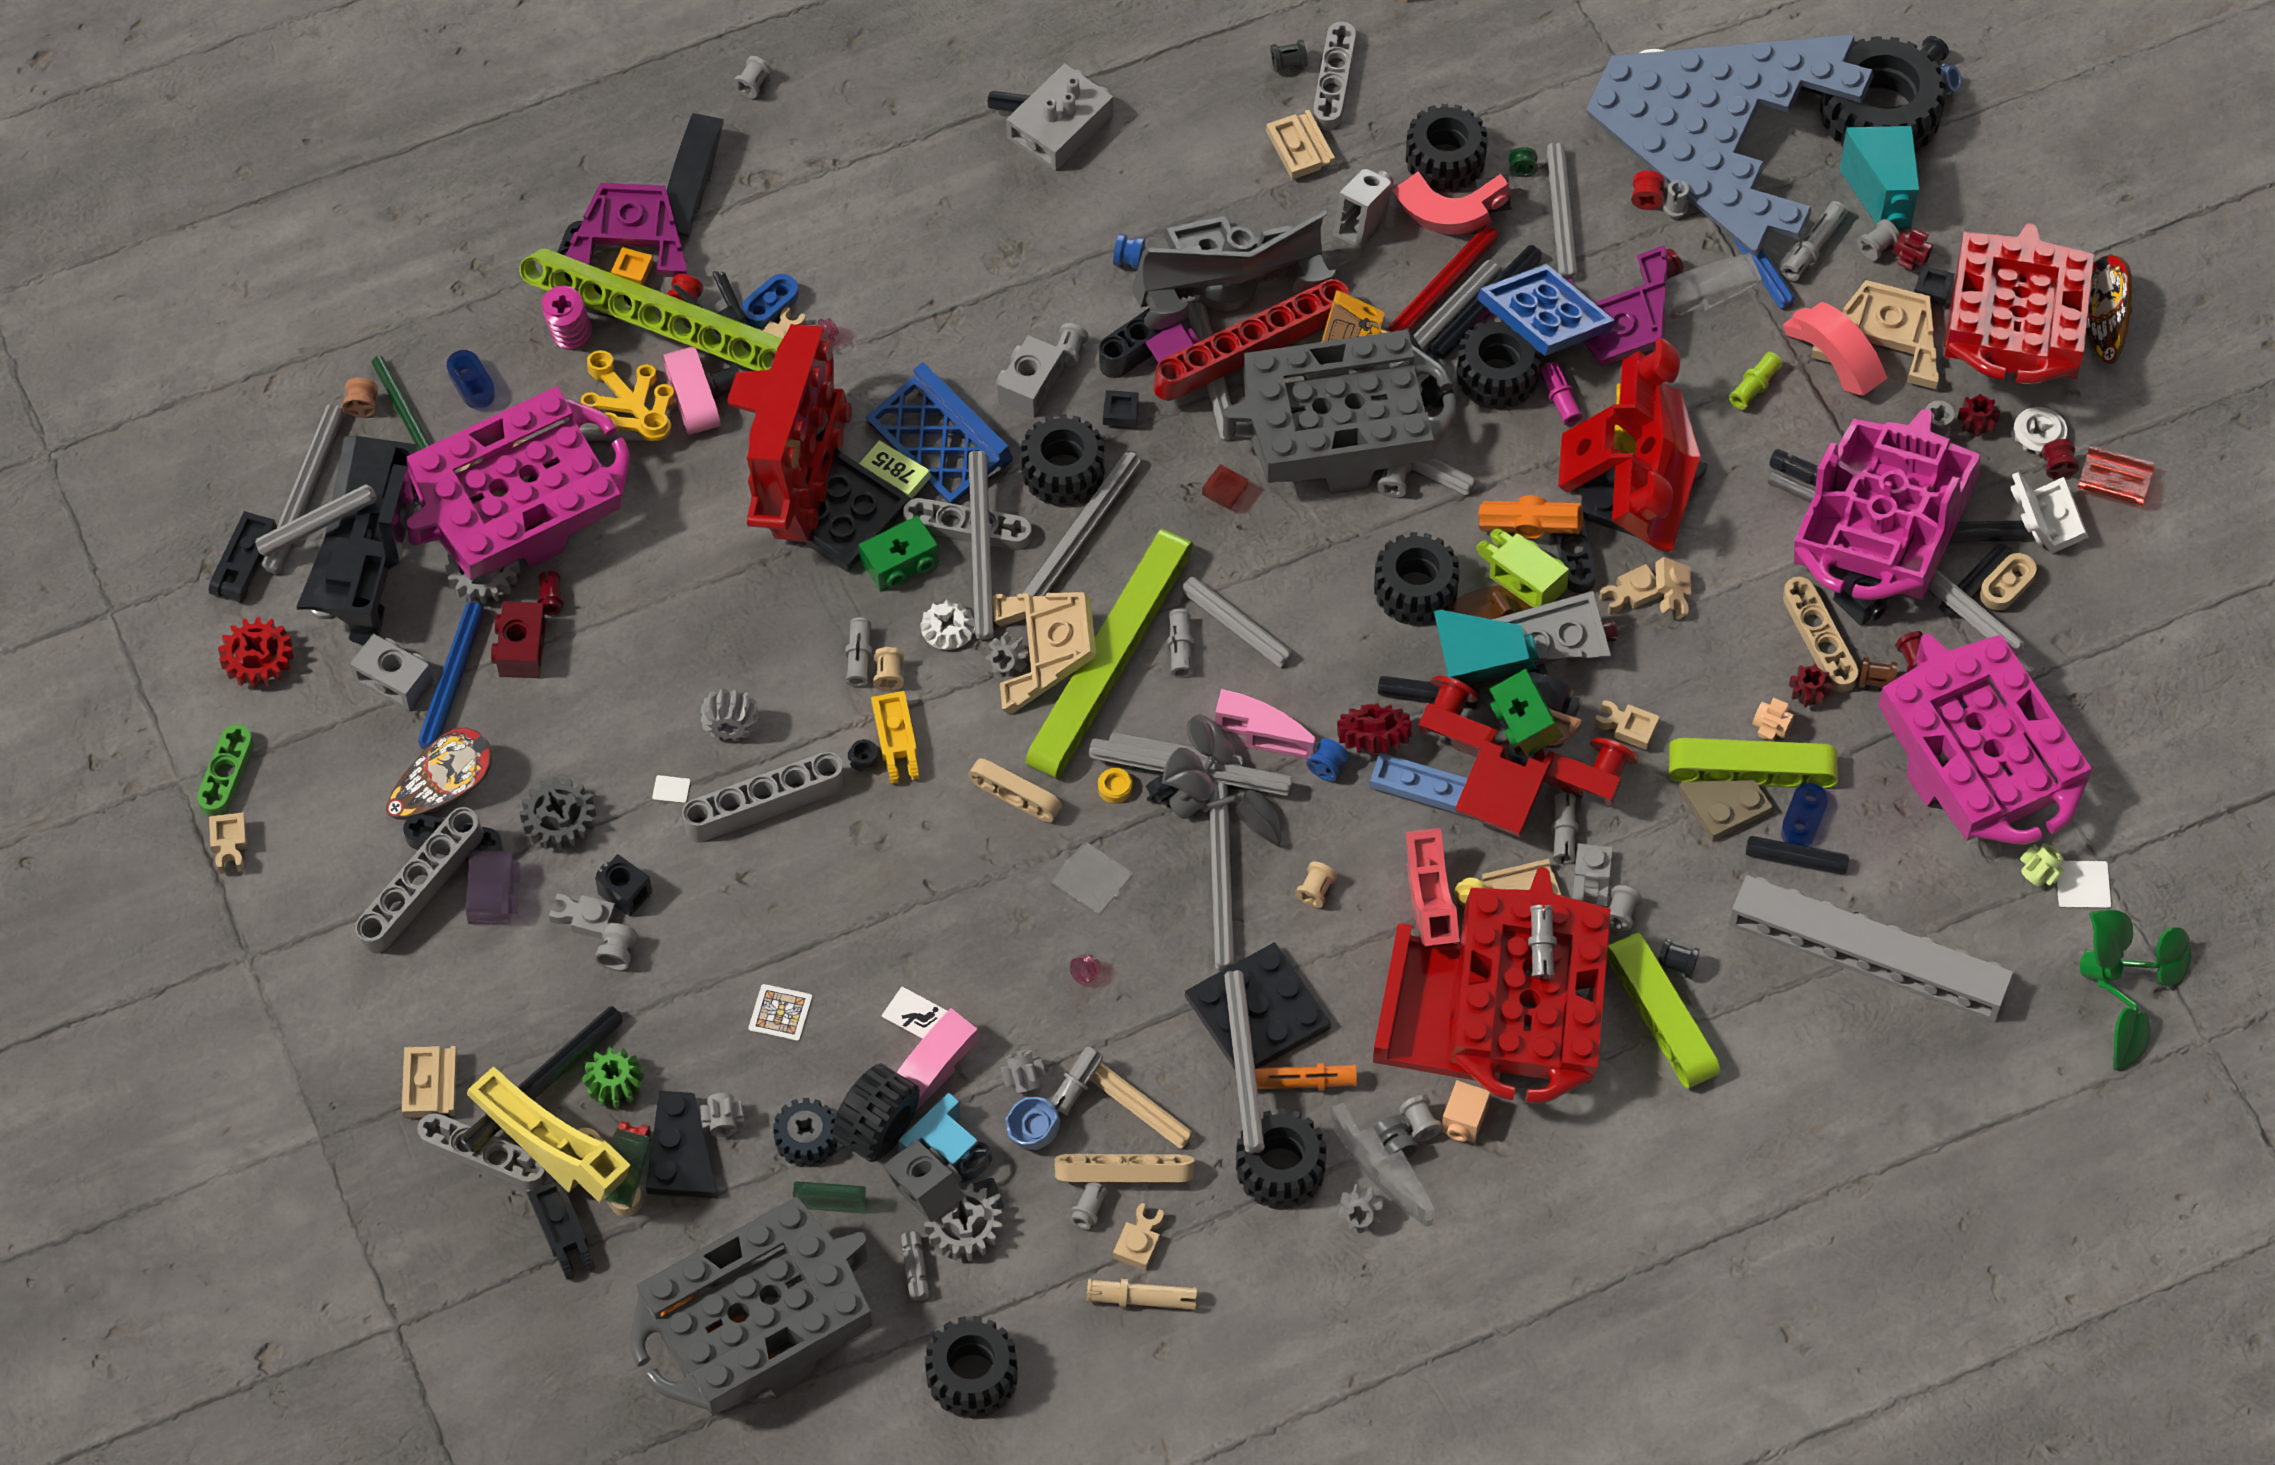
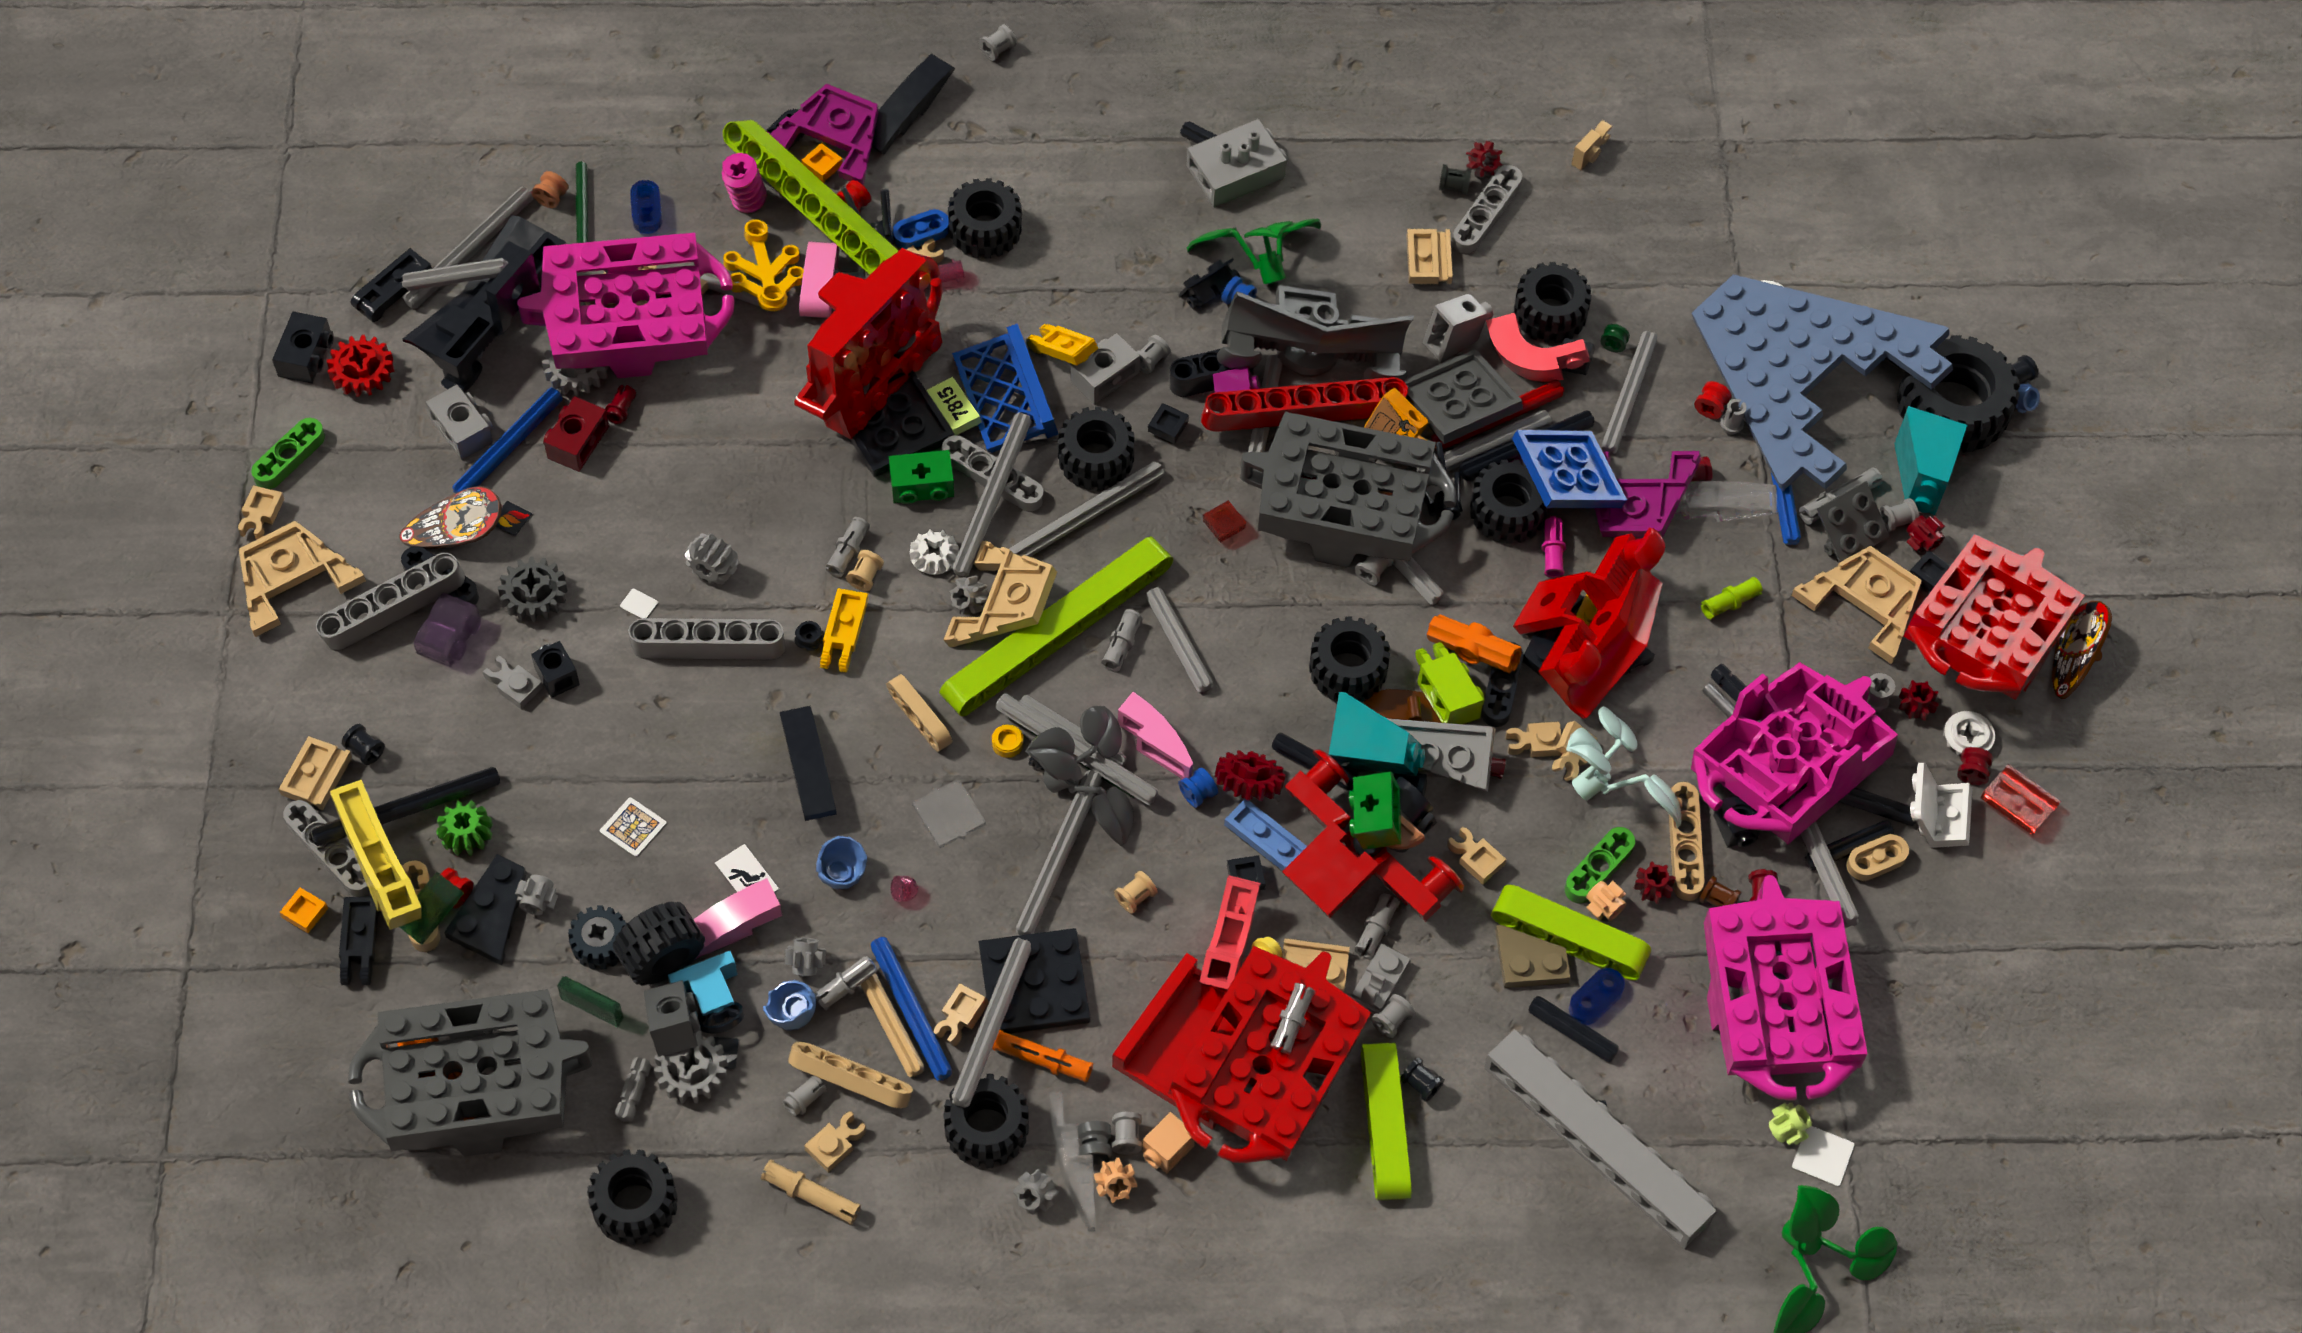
camera: 20 degrees right, 0 degrees up
(188, 673) = (303, 347): none -> black brick
(282, 881) = (284, 561): none -> tan wing
(464, 1034) = (376, 746): none -> black bush
(490, 1221) = (303, 910): none -> light orange plate
(500, 749) = (512, 518): none -> black sticker
(616, 946) = (523, 718): light grey wheel -> none
(829, 244) = (985, 236): none -> black tyre
(929, 882) = (808, 763): none -> black slope
(978, 366) = (1062, 344): none -> yellow hinge
(1013, 966) = (841, 862): none -> medium blue hair
(1084, 260) = (1200, 290): none -> black hinge
(1145, 207) = (1270, 262): none -> green plant
(1150, 1082) = (911, 1009): none -> blue axle
(1203, 1062) = (961, 1010): none -> tan plate
(1309, 24) = (1477, 158): none -> dark red gear
(1402, 274) = (1461, 396): none -> dark grey plate
(1412, 820) = (1247, 868): none -> black plate
(1433, 1166) = (1115, 1180): none -> light nougat gear
(1709, 603) = (1597, 775): none -> light aqua plant
(1745, 675) = (1600, 851): none -> bright green beam
(1840, 264) = (1852, 522): none -> dark grey hinge
(1843, 345) = (1820, 593): coral arch -> none

